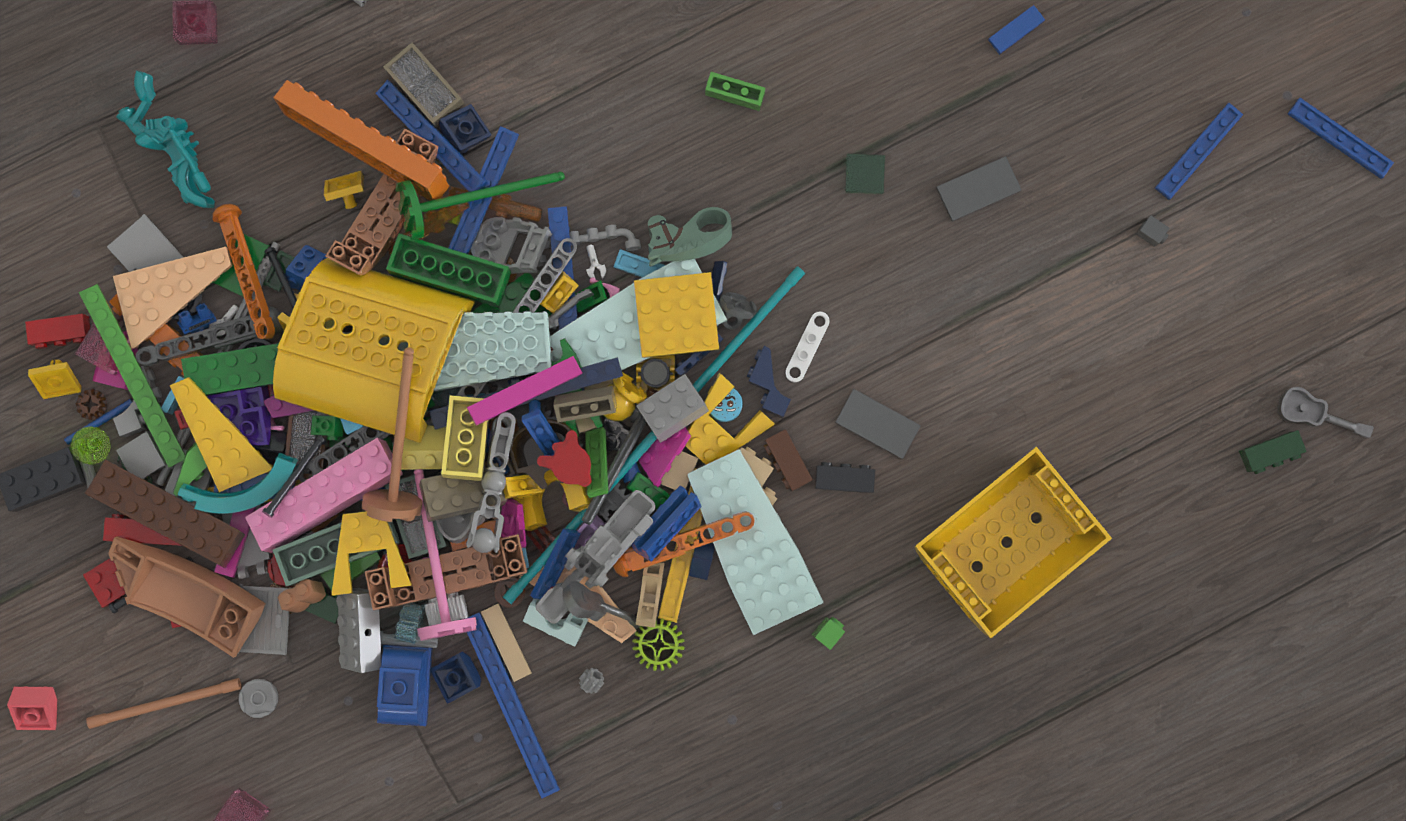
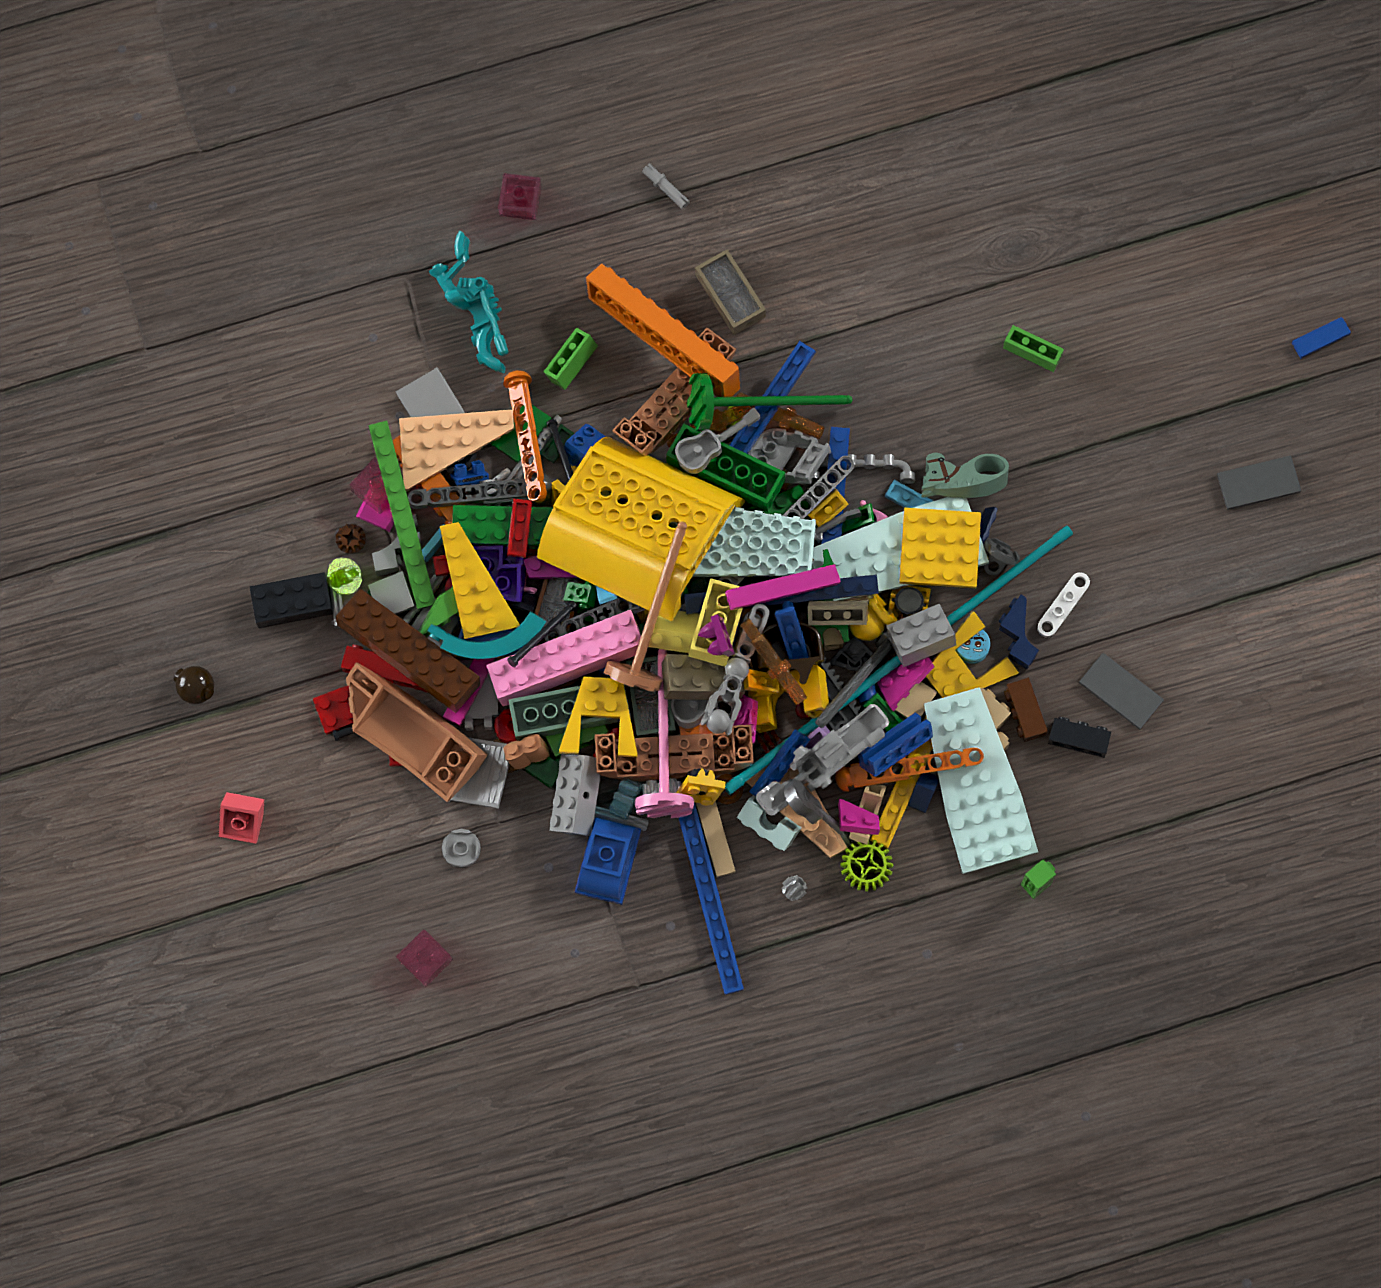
camera: 15 degrees right, 10 degrees down
(54, 380) = (322, 508): yellow tile -> none
(57, 330) = (333, 462): red brick -> none
(104, 418) = (360, 554): blue bar -> none
(105, 718) = (429, 831): nougat piece -> none
(252, 371) = (519, 528): none -> red tile
(276, 182) = (570, 358): none -> bright green brick
(344, 187) = (636, 375): yellow tile -> none
(416, 261) = (697, 451): none -> light grey piece
(420, 125) = (715, 322): blue tile -> none
(456, 676) = (660, 860): dark blue slope -> none
(464, 129) = (761, 340): dark blue slope -> none
(465, 450) = (717, 628): none -> magenta tile
(480, 600) = (702, 786): none -> yellow piece
(534, 474) = (777, 667): none -> clear orange piece
(569, 462) = (813, 664): red tile -> none
(594, 263) = (866, 488): white bar -> none
(597, 451) = (837, 673): bright green tile -> none
(640, 604) = (857, 819): none -> dark pink wing
(684, 366) = (951, 595): dark blue wing -> none
(865, 173) = (1148, 449): clear green tile -> none
(1038, 552) = (1233, 794): yellow slope -> none

